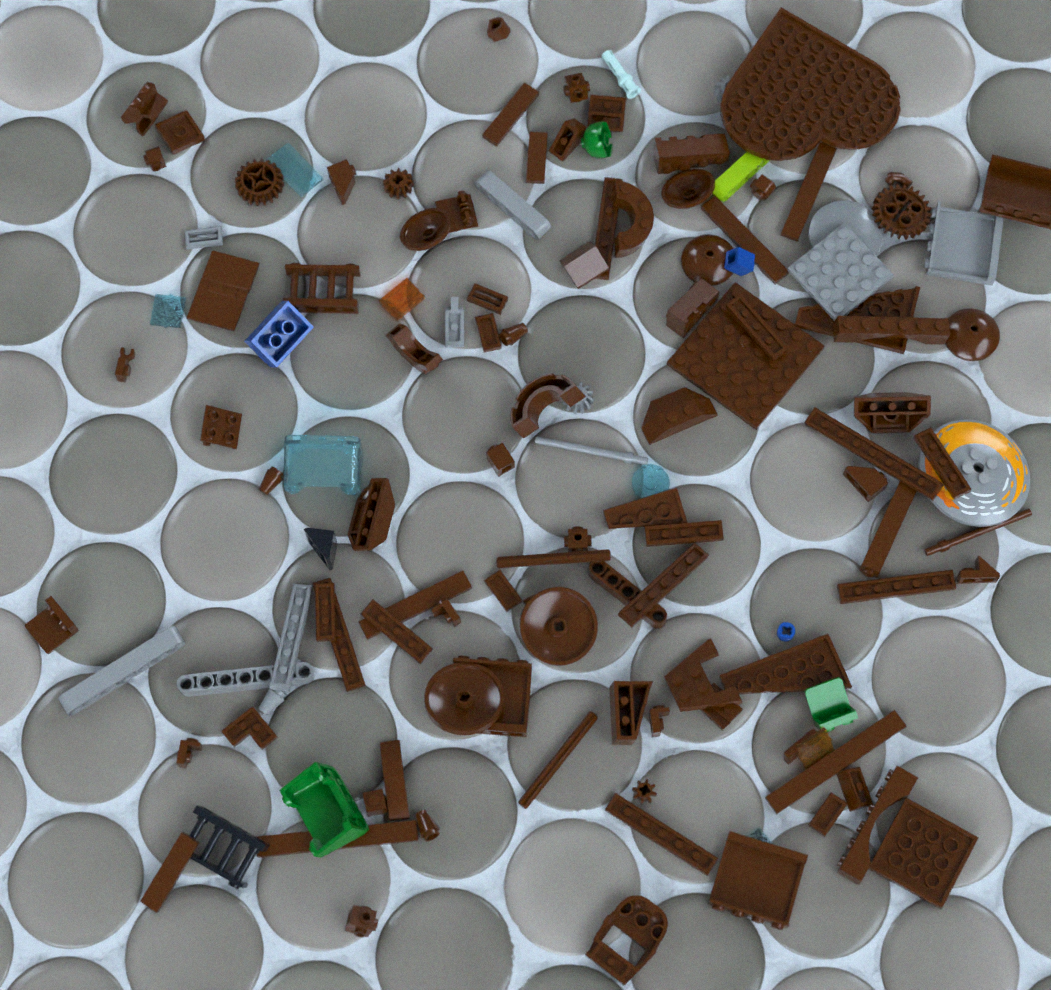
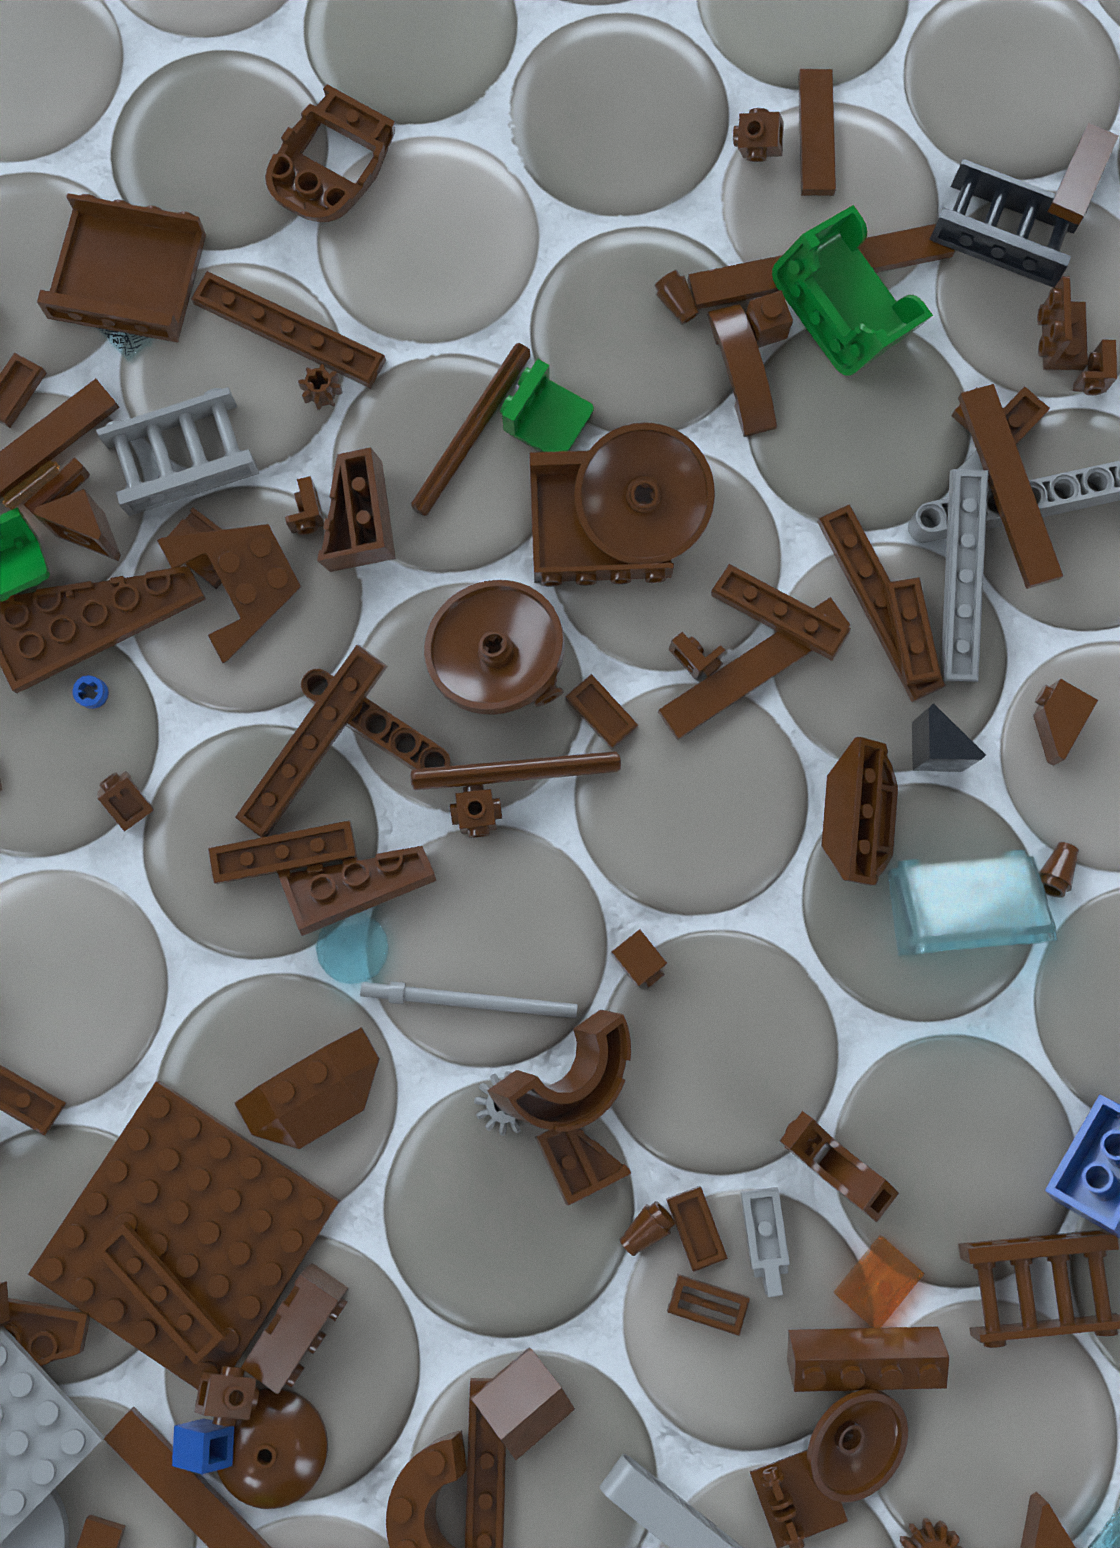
camera: 170 degrees right, 10 degrees up
(201, 778) = (1063, 330): none -> reddish brown bracket
(252, 557) = (1061, 717): none -> reddish brown slope
(257, 681) = (1010, 486): none -> reddish brown tile
(324, 927) = (816, 132): none -> reddish brown tile
(414, 265) = (867, 1359): none -> reddish brown brick
(513, 761) = (544, 412): none -> green bracket
(541, 363) = (579, 1163): none -> reddish brown wing
(726, 280) = (226, 1396): none -> reddish brown brick
(734, 742) = (171, 484): none -> light grey fence
(769, 570) = (123, 800): none -> reddish brown bracket
(785, 718) = (80, 522): none -> reddish brown slope

